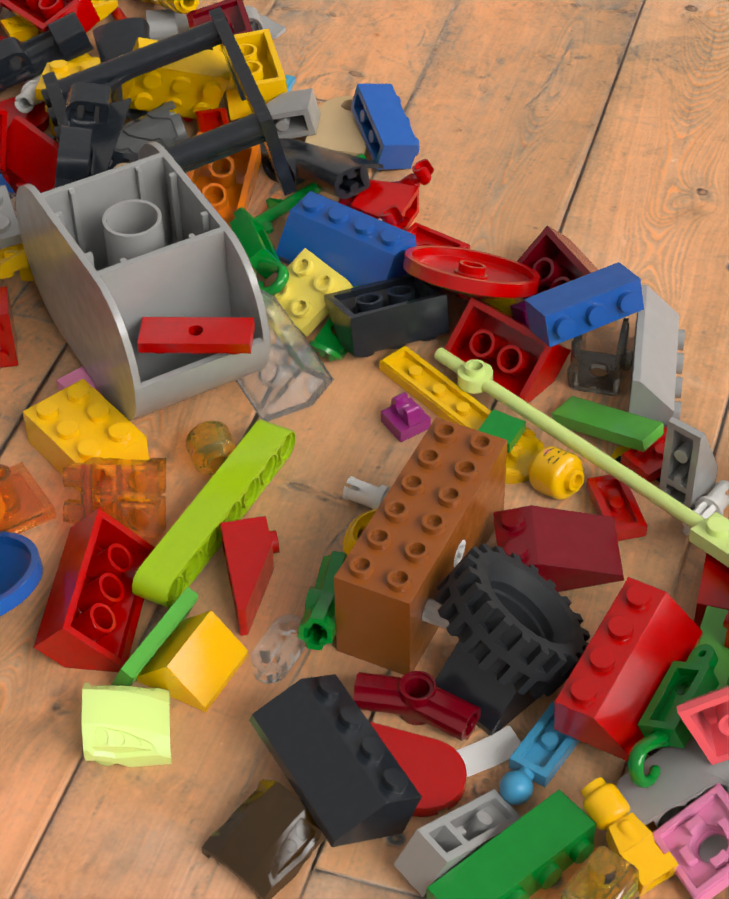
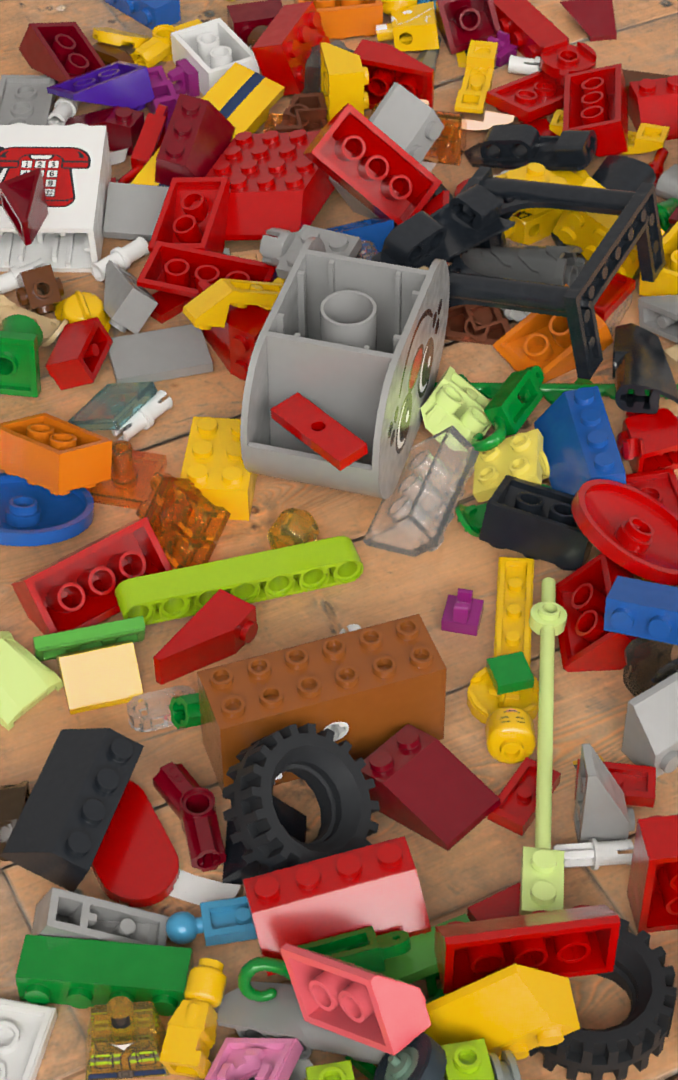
camera: 45 degrees right, 0 degrees up
(608, 423) = (601, 726): bright green tile -> none

